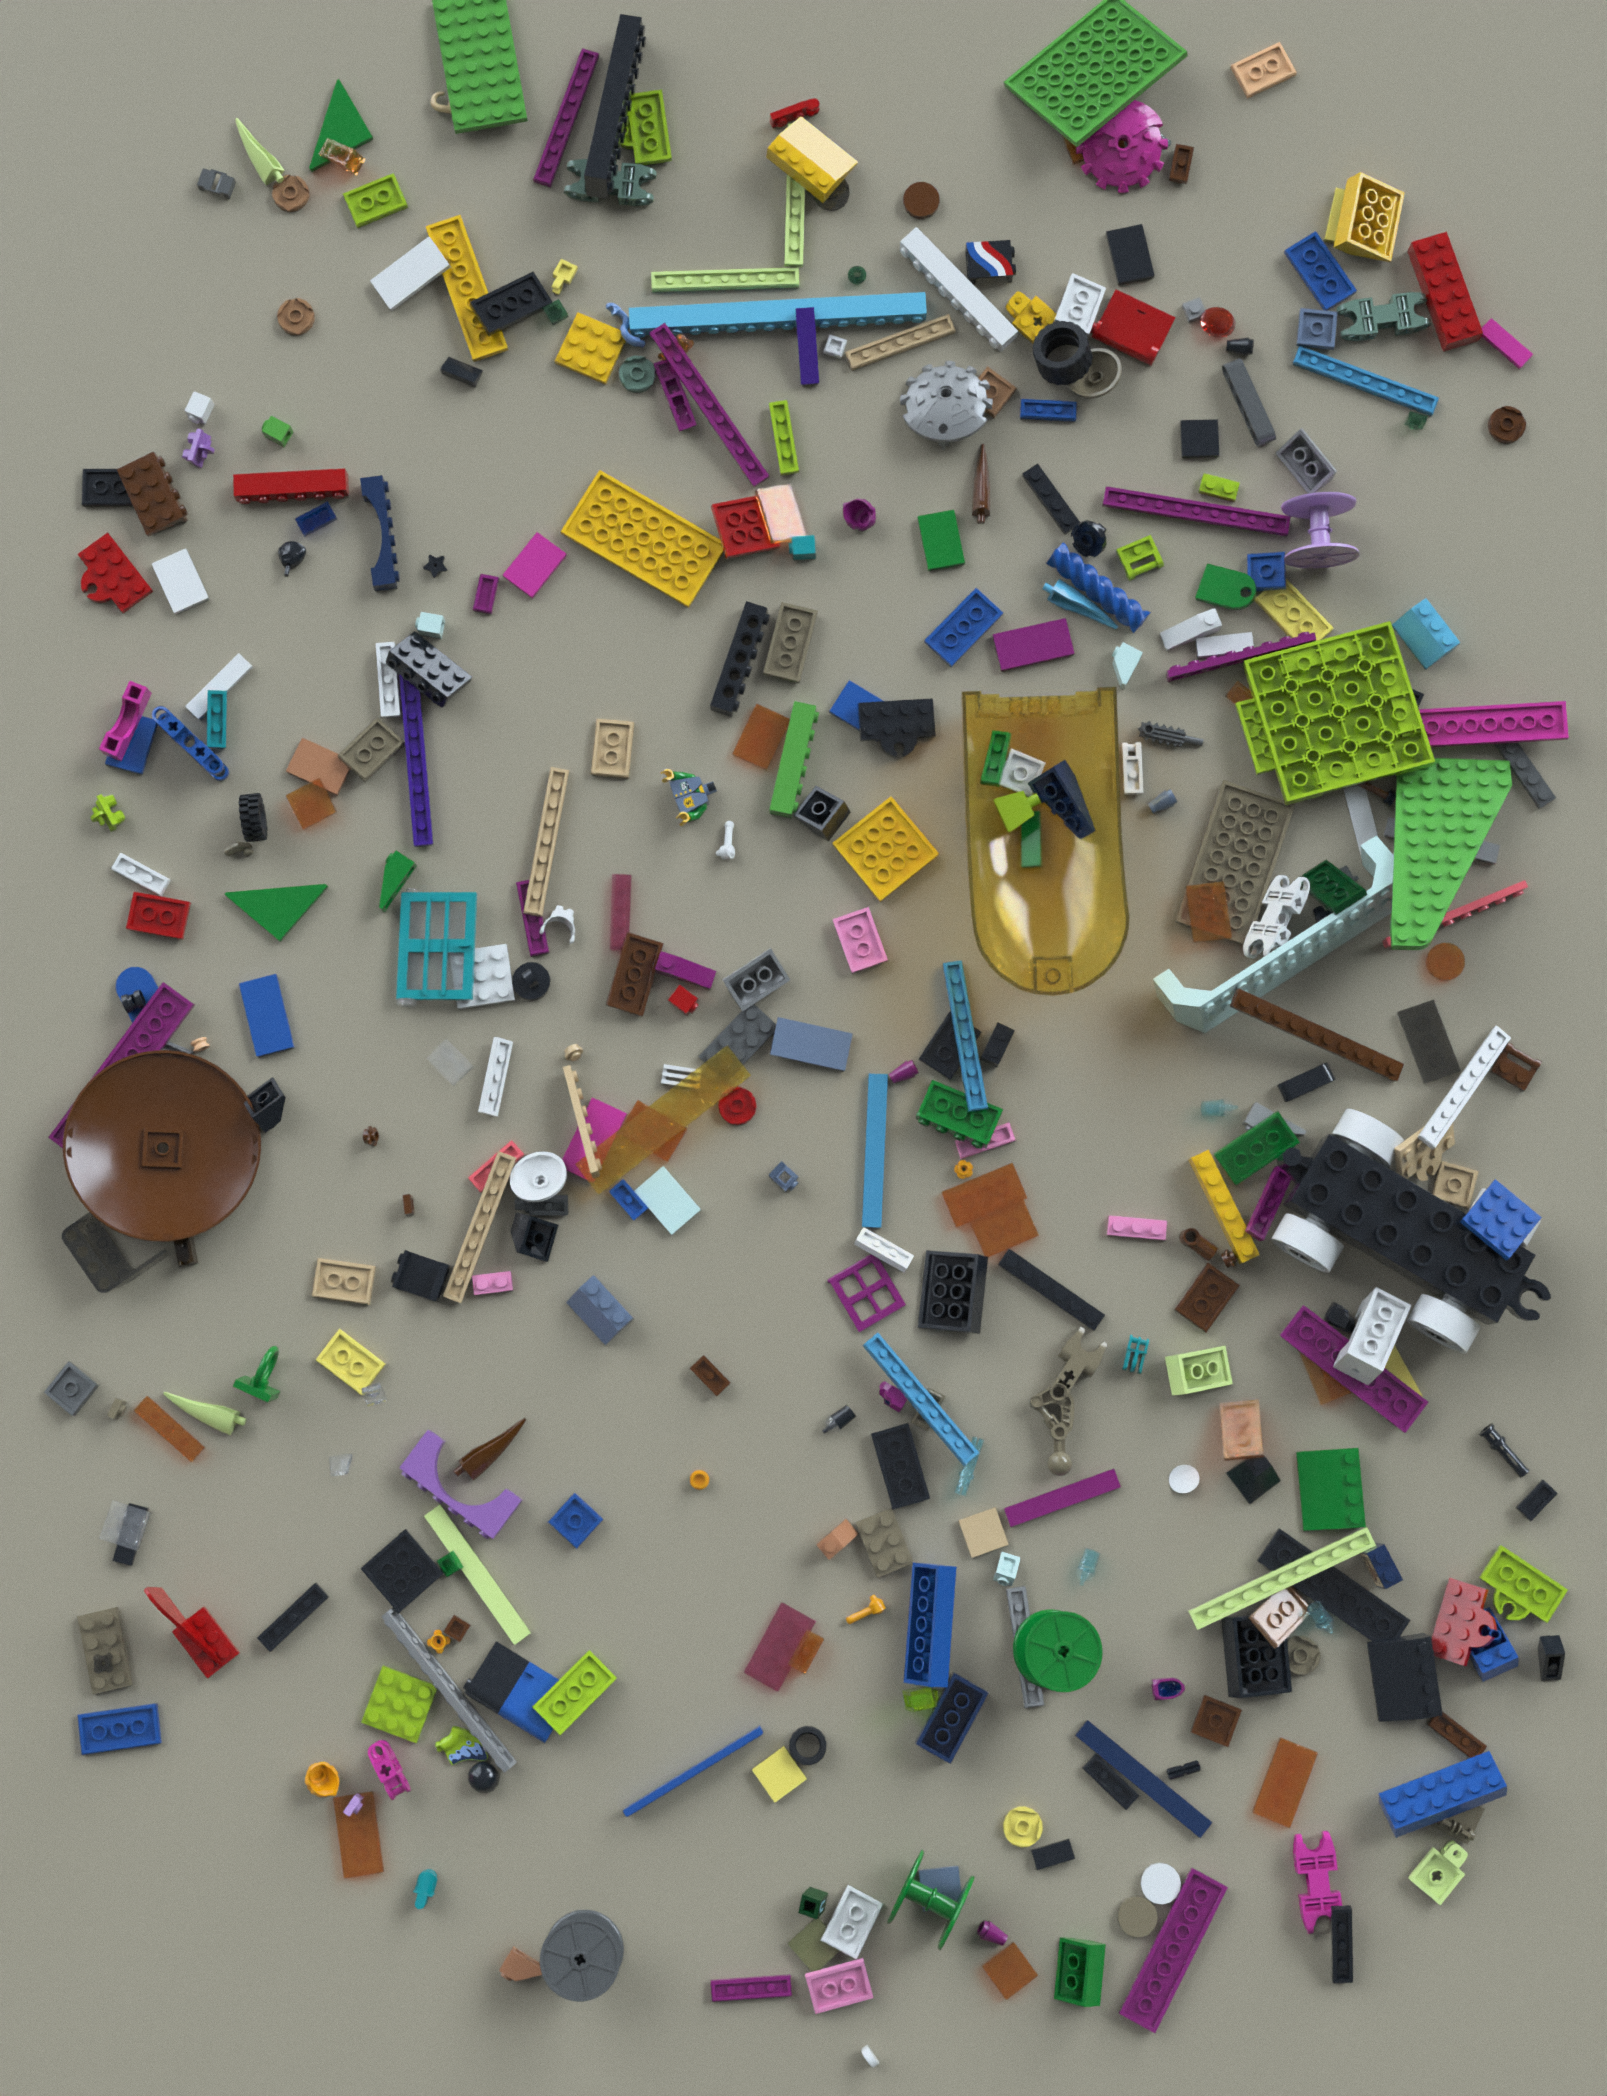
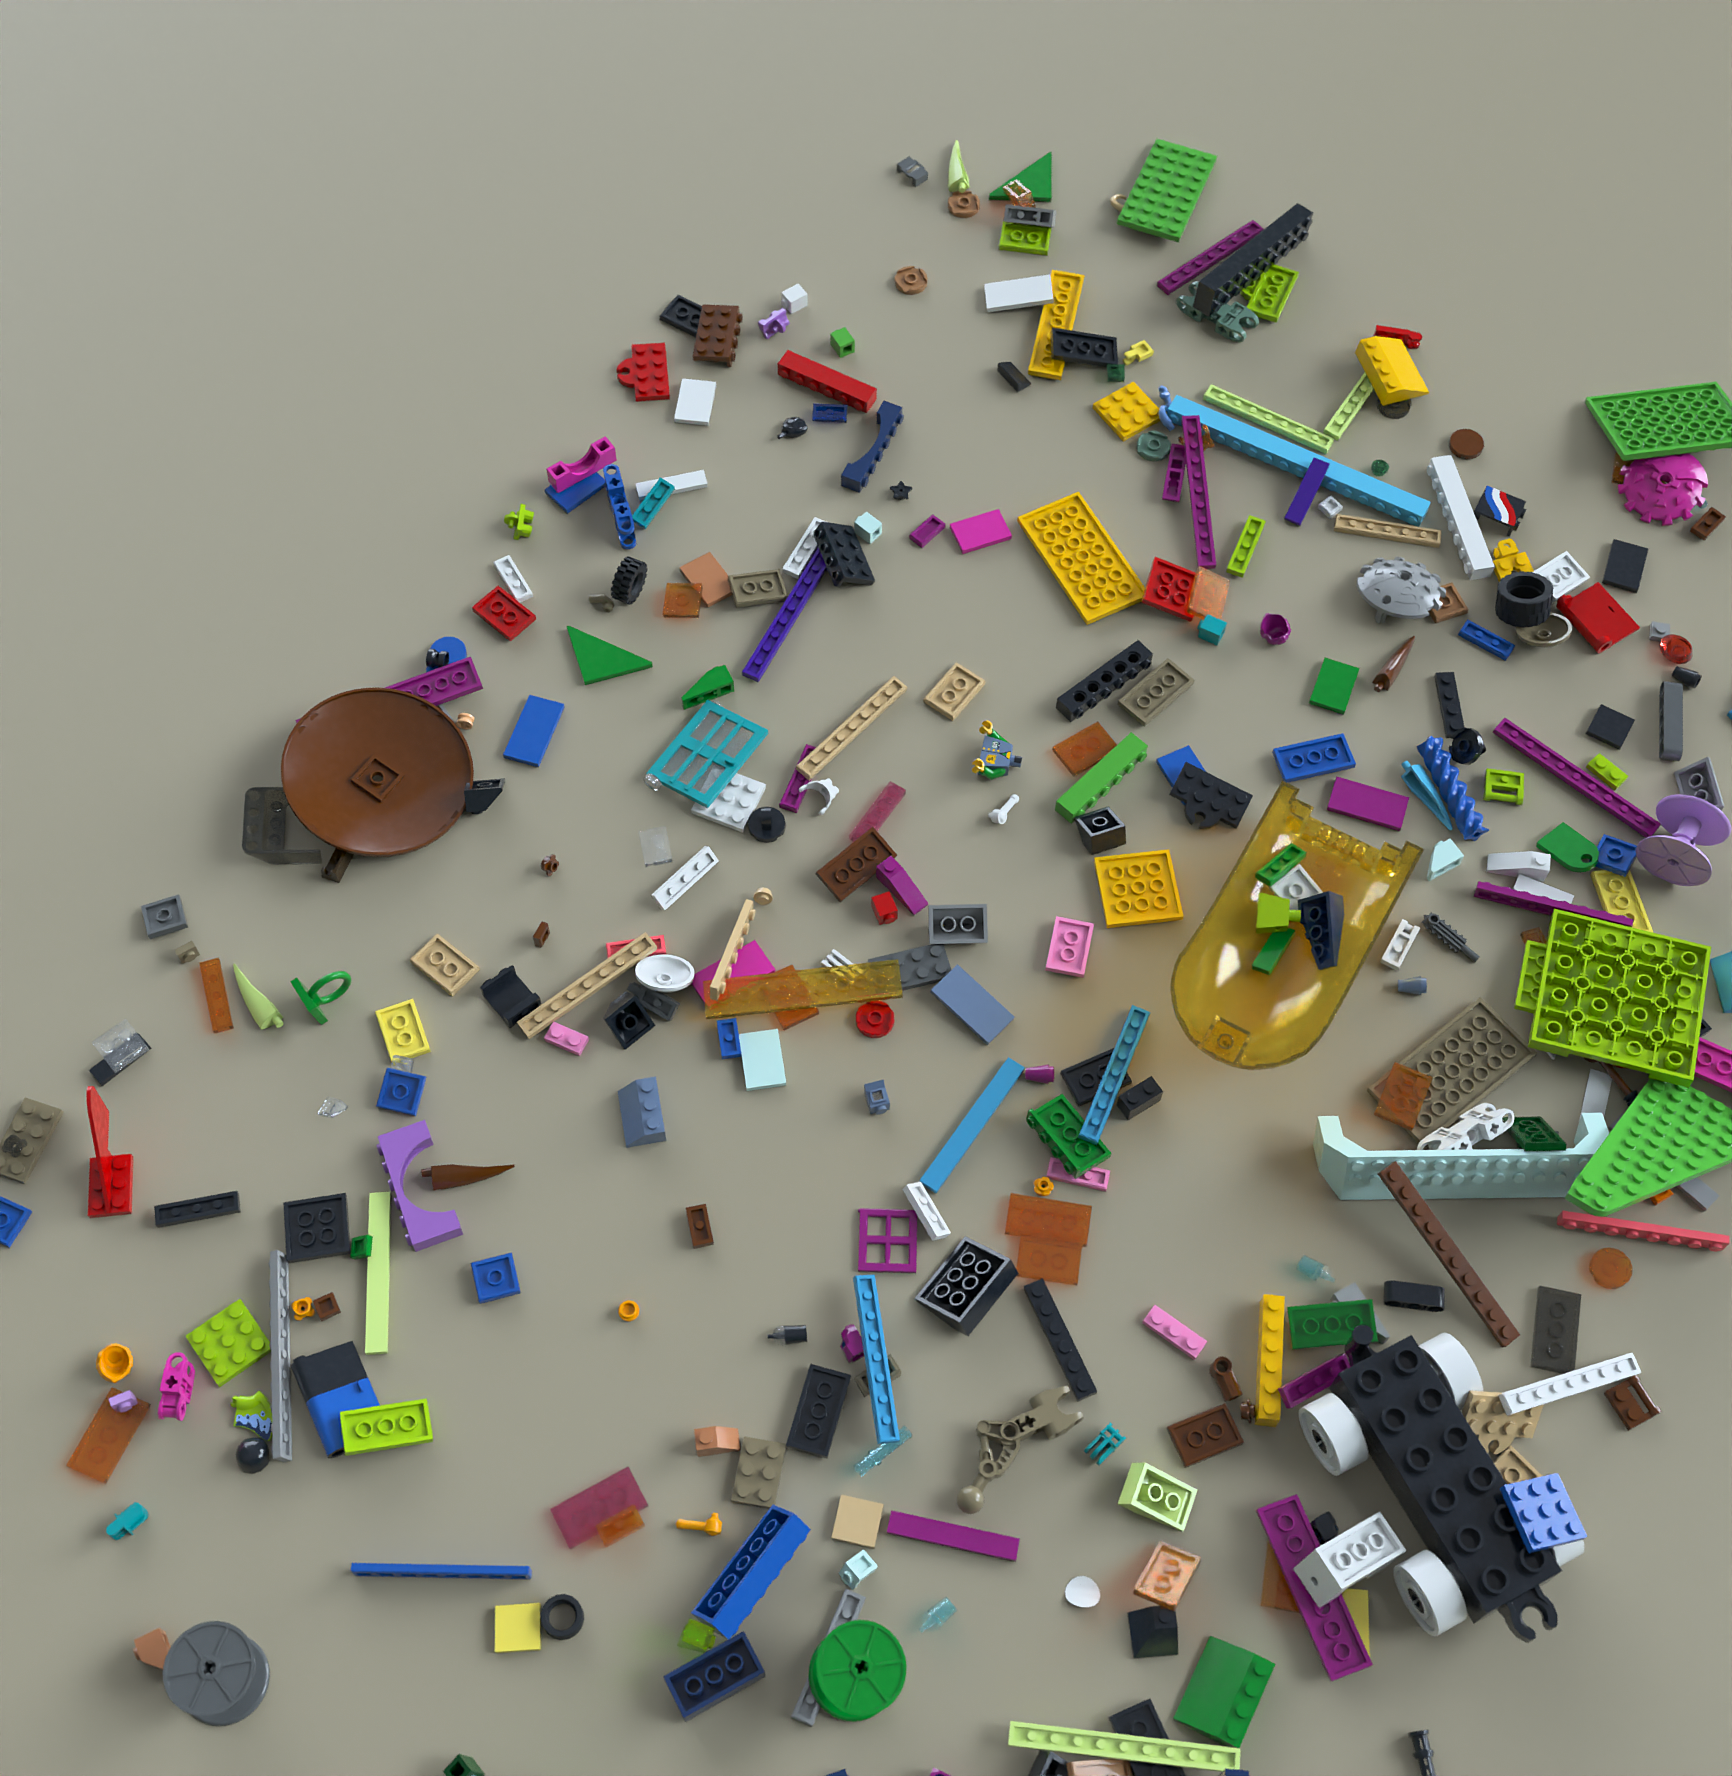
camera: 30 degrees right, 20 degrees down
(367, 174) = (1030, 215): none -> light grey slope
(388, 1415) = (401, 1091): none -> blue plate

